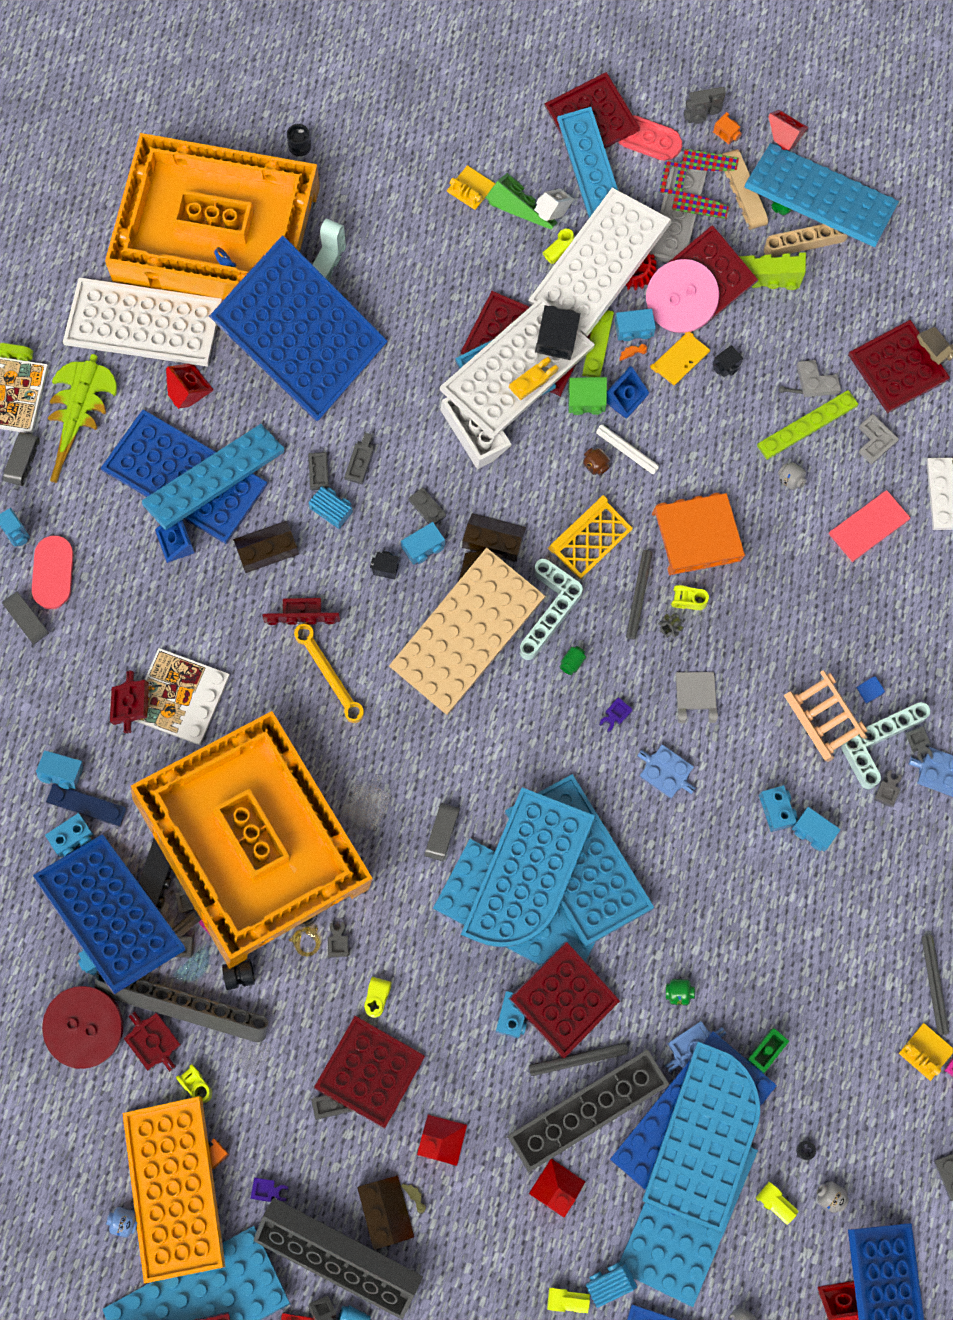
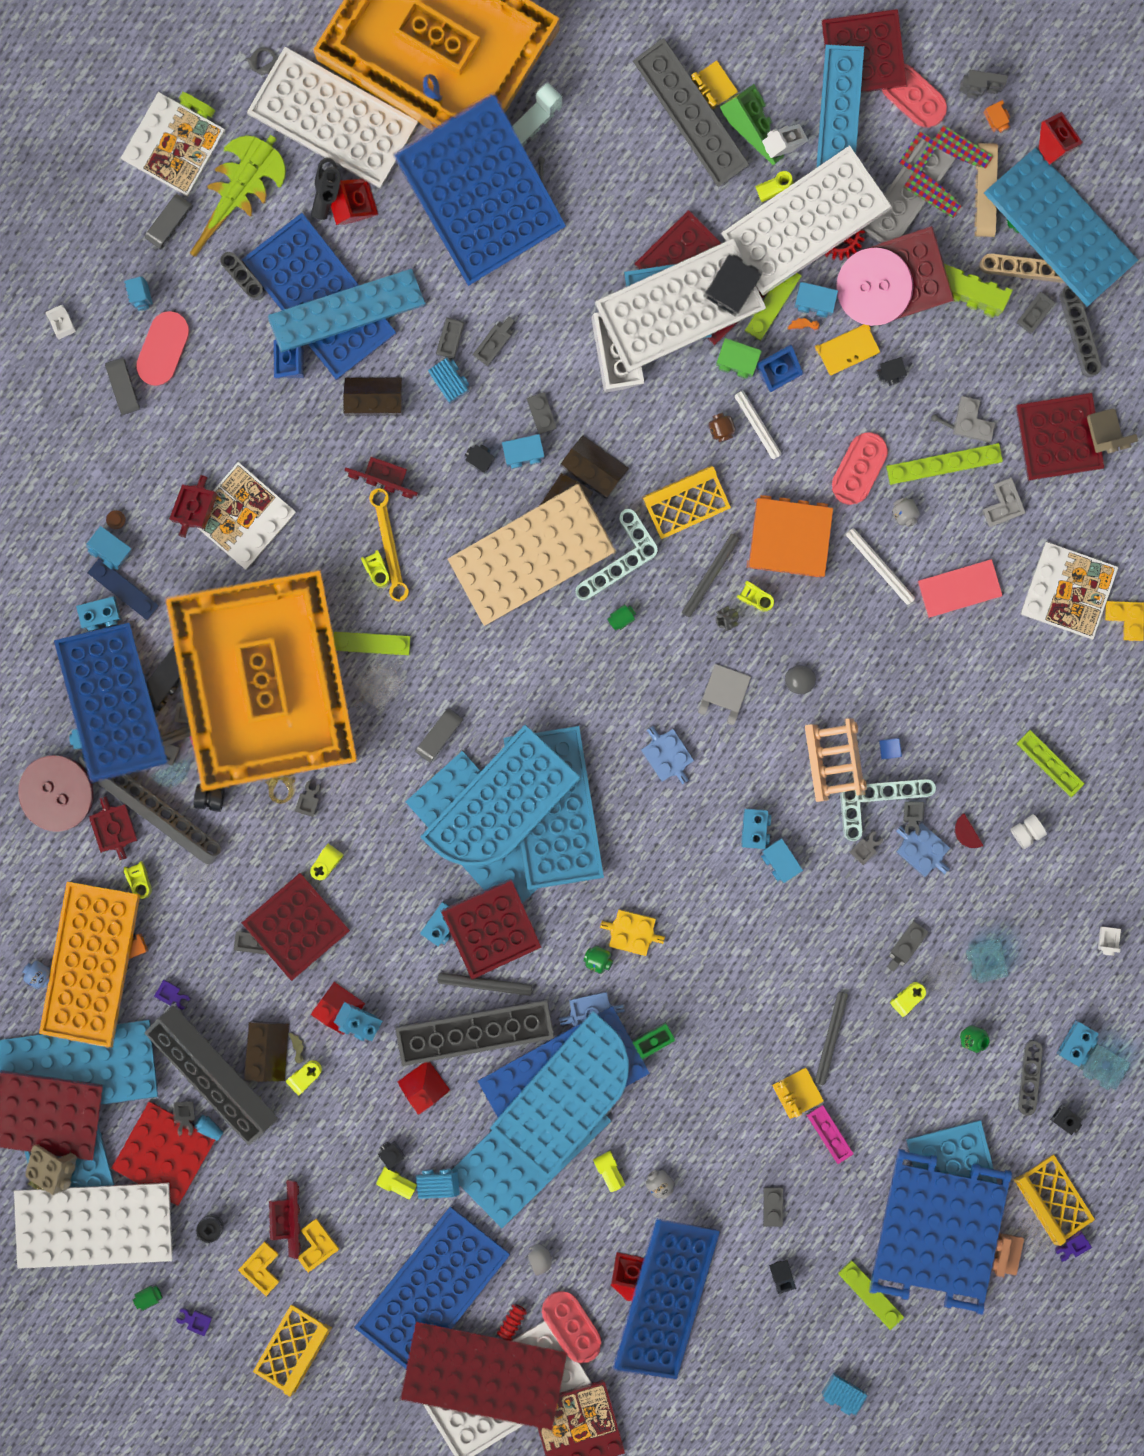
camera: 20 degrees right, 15 degrees up
(58, 742) = (115, 519): none -> reddish brown plate
(66, 304) = (253, 61): none -> dark grey piece
(101, 475) = (236, 269): none -> dark grey beam
(153, 372) = (326, 189): none -> black connector
(323, 696) = (374, 566): none -> neon yellow piece
(347, 769) = (372, 643): none -> lime plate
(431, 1228) = (302, 1078): none -> neon yellow piece
(462, 212) = (691, 112): none -> dark grey plate
(467, 1144) = (357, 1021): none -> dark azure brick
(532, 379) = (688, 325): yellow hinge -> none
(551, 1271) = (391, 1154): none -> black brick
(616, 713) = (644, 683): dark purple plate -> none
(701, 953) = (632, 932): none -> yellow plate
(734, 455) = (859, 468): none -> coral tile
(760, 658) = (800, 679): none -> dark grey hair
(790, 532) = (880, 566): none -> white axle
(809, 1145) = (659, 1133): black bush -> none
(830, 272) = (1035, 313): none -> dark grey plate
(873, 266) = (1079, 341): none -> dark grey beam

